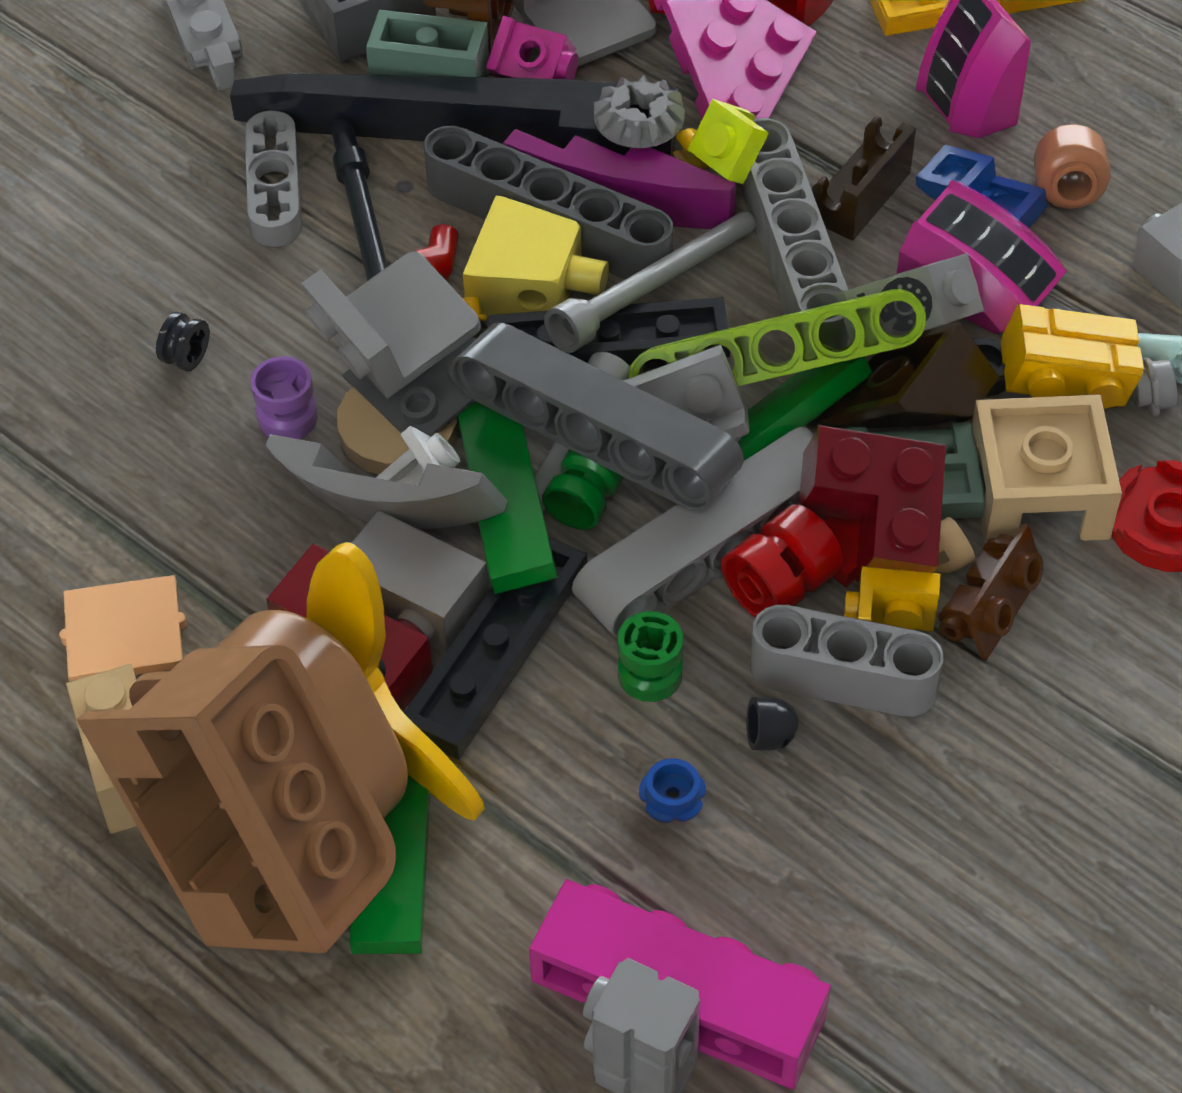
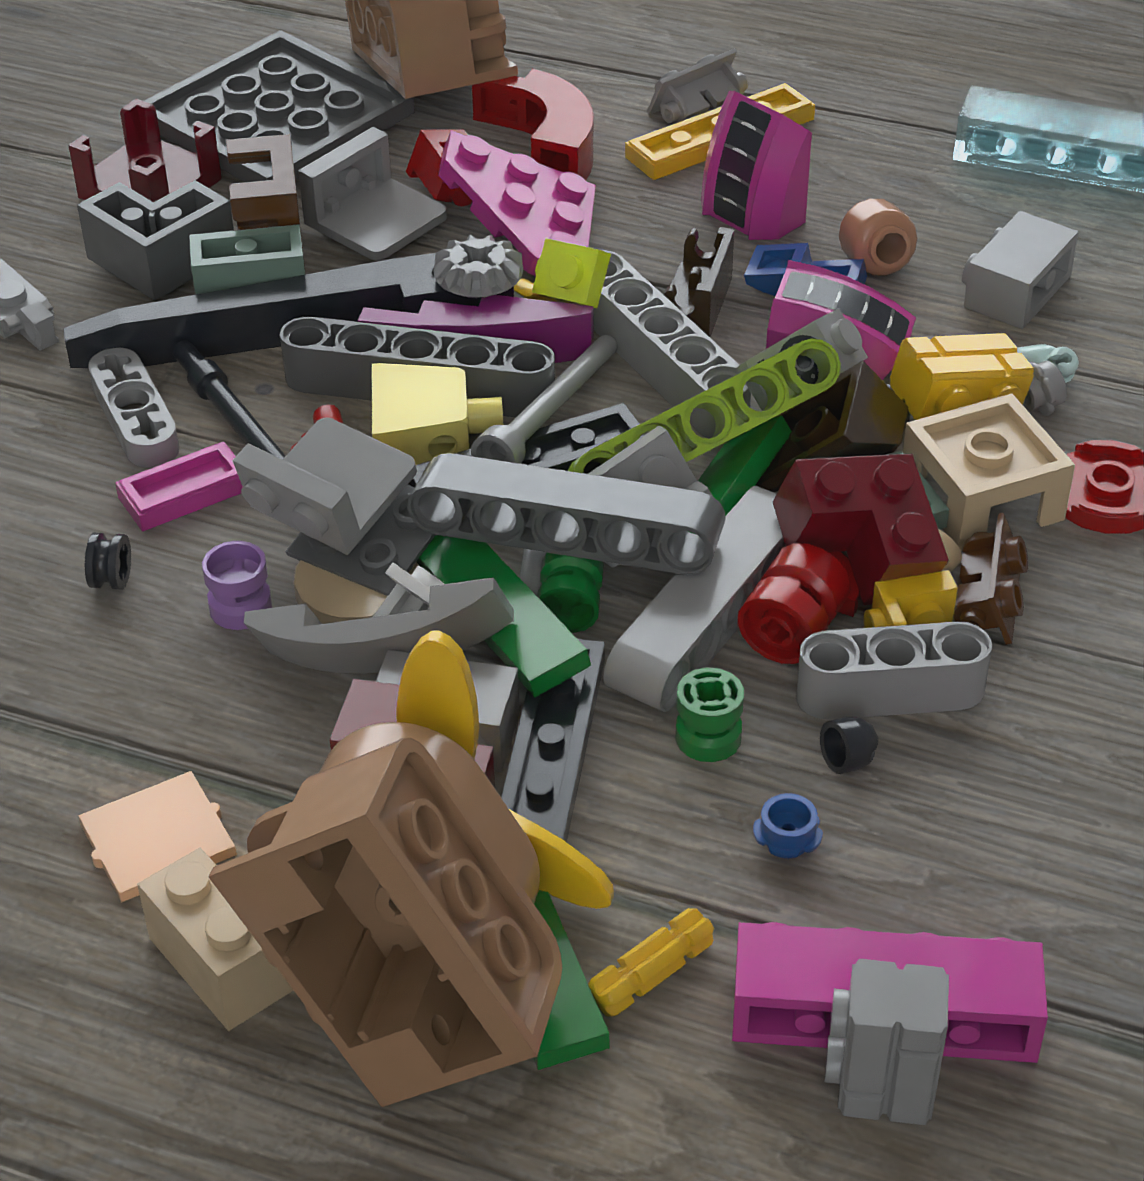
camera: 20 degrees left, 10 degrees down
(276, 275) = (180, 486): none -> dark pink tile
(489, 885) = (651, 961): none -> yellow axle
(514, 46) = (331, 236): dark pink brick -> none

